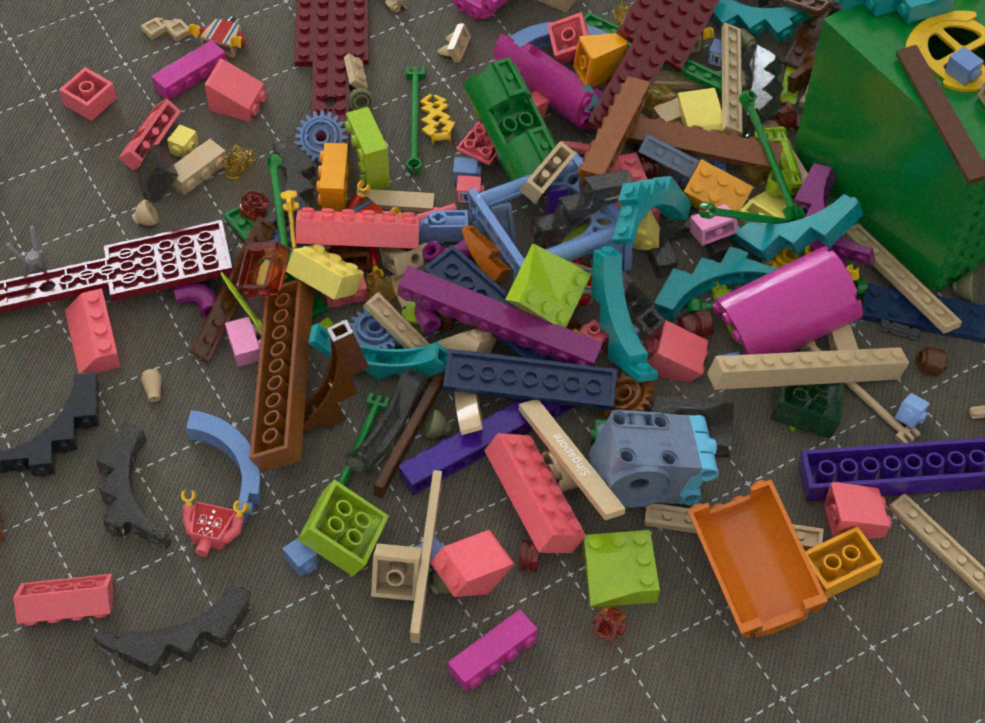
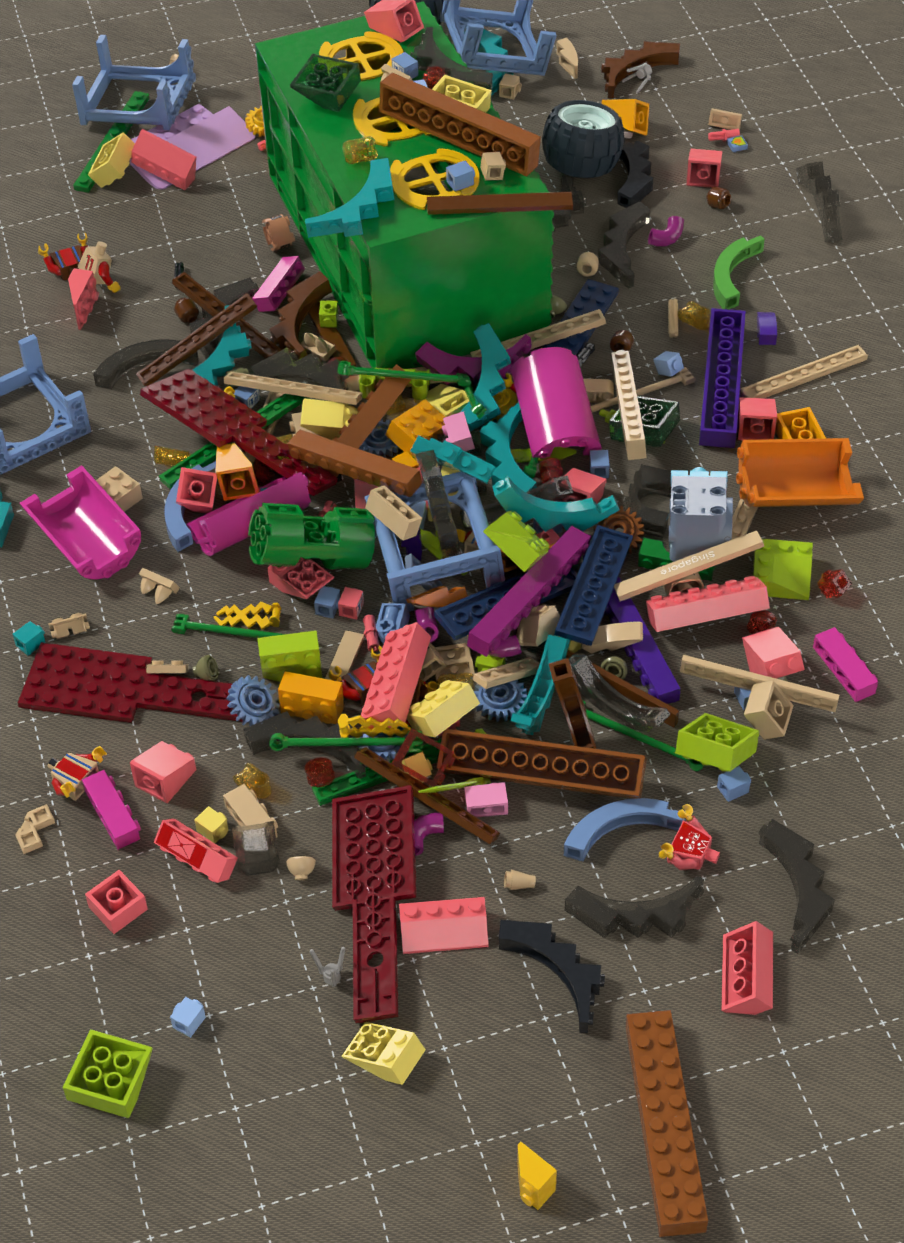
camera: 75 degrees left, 5 degrees down
(668, 156) = (377, 442): sand blue plate -> none

